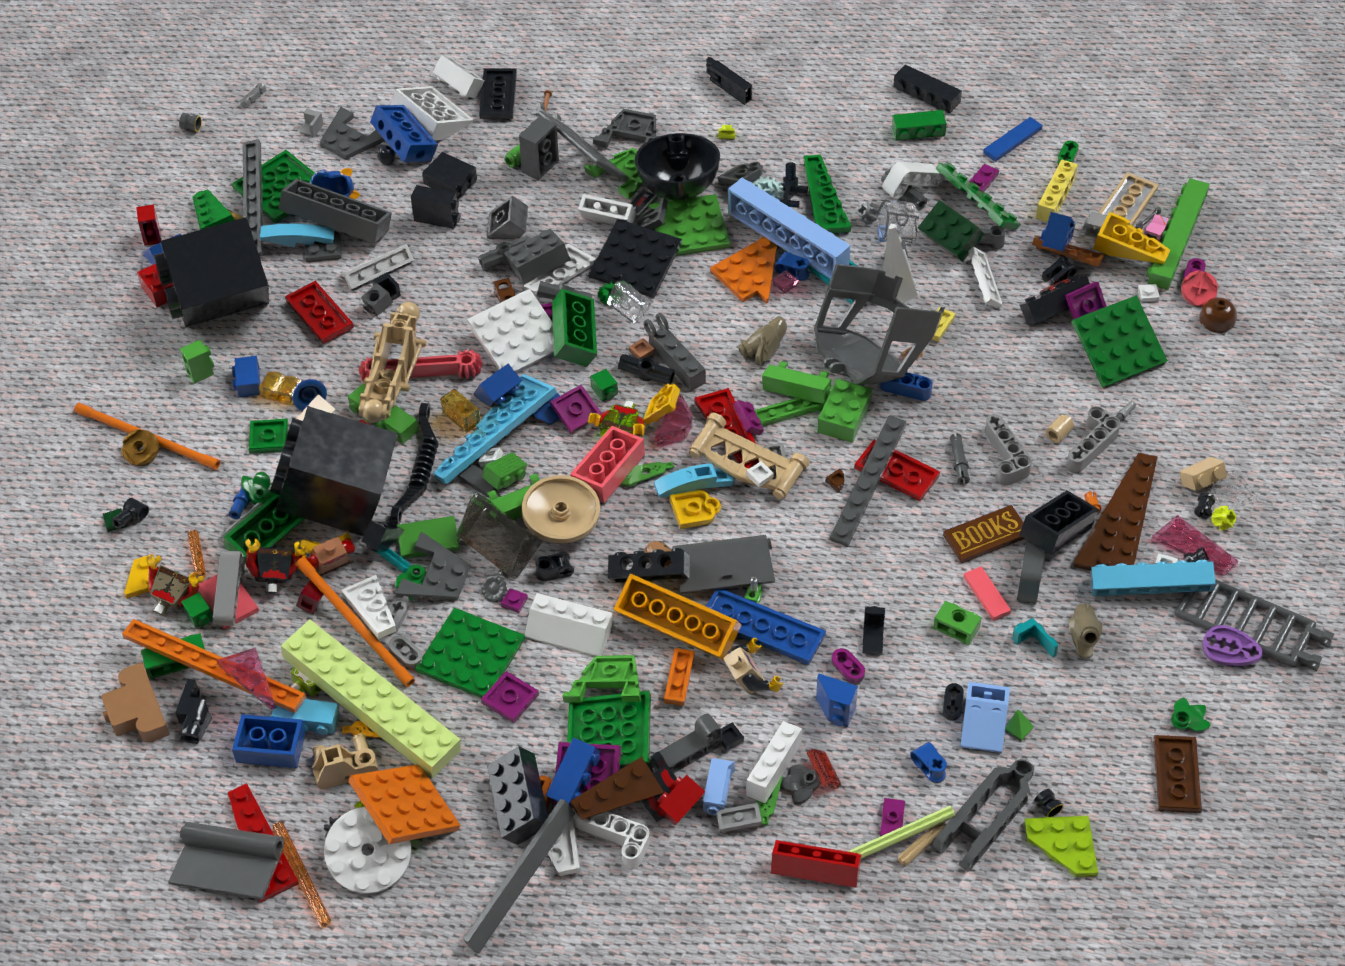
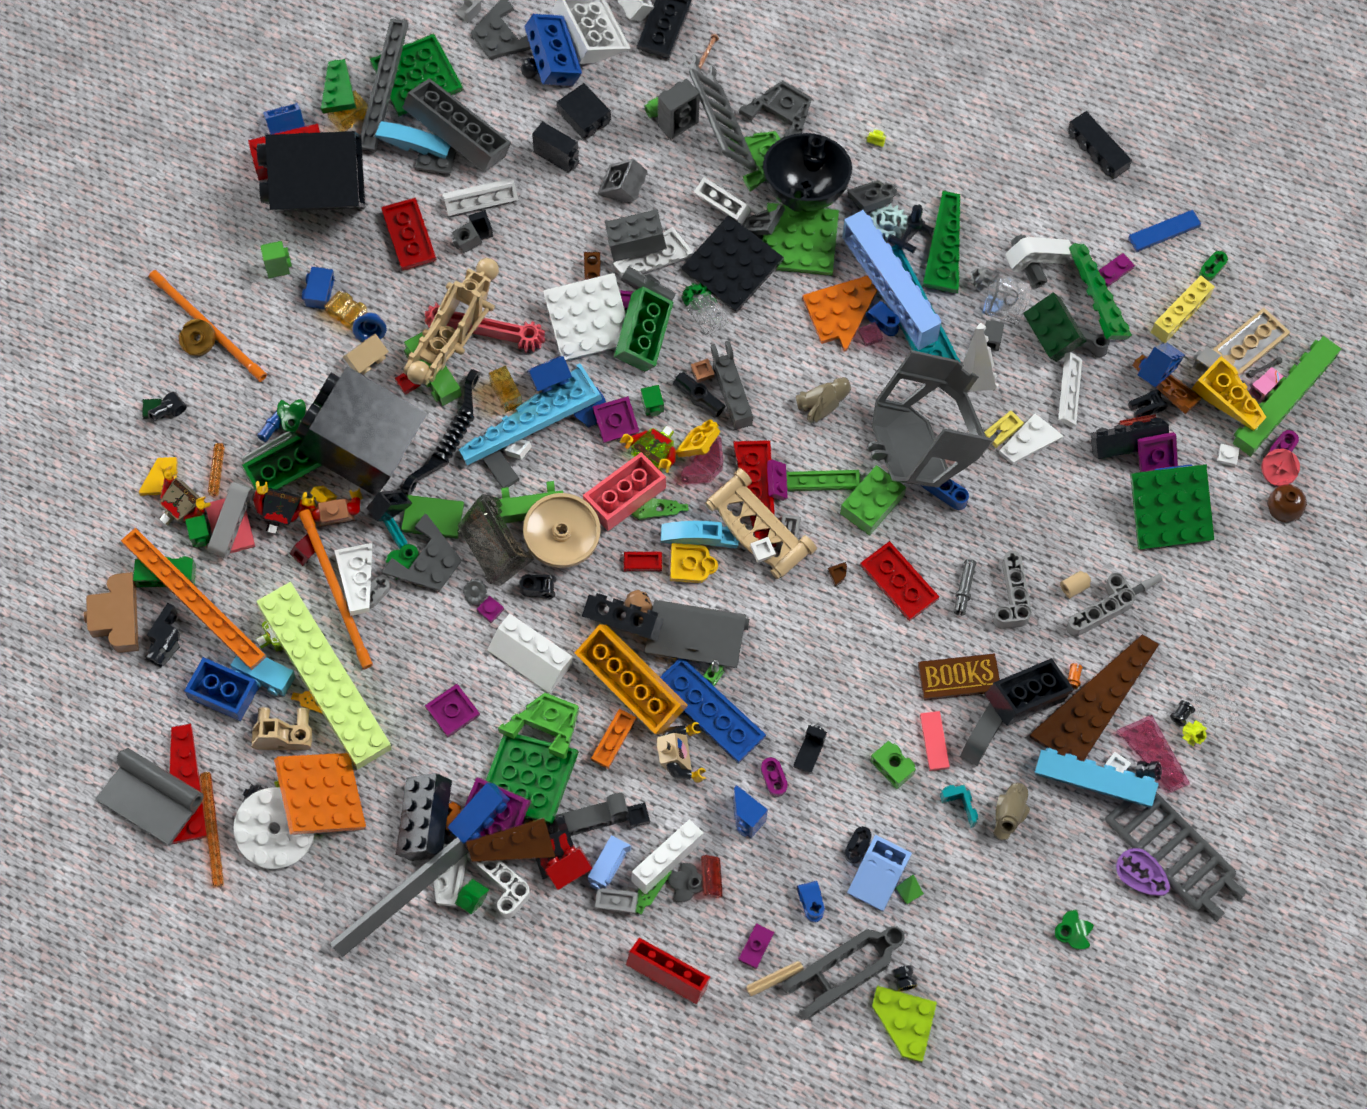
camera: 15 degrees right, 15 degrees up
(149, 224) = (275, 87): red brick -> none
(248, 671) = (220, 618): clear pink wing -> none
(267, 435) = (319, 358): green tile -> none
(336, 181) = (468, 92): blue hair -> none
(407, 652) = (373, 634): light grey plate -> none
(470, 653) = (432, 652): green plate -> none
(497, 256) = (597, 221): dark grey piece -> none
(504, 471) = (525, 469): bright green brick -> none
(592, 854) = (471, 896): none -> green brick
(641, 201) = (759, 199): tile -> none
(647, 520) = (642, 561): none -> red tile
(729, 81) = (900, 77): black hinge -> none
(796, 383) = (836, 457): bright green brick -> none
(868, 481) = (866, 585): dark grey plate -> none
(904, 832) = (756, 966): yellowish green axle -> none
(919, 125) = (1074, 187): green brick -> none
(965, 327) = (1030, 438): none -> white wing
(1177, 774) = (1038, 985): reddish brown tile -> none
(1203, 473) = (1194, 679): tan brick -> none

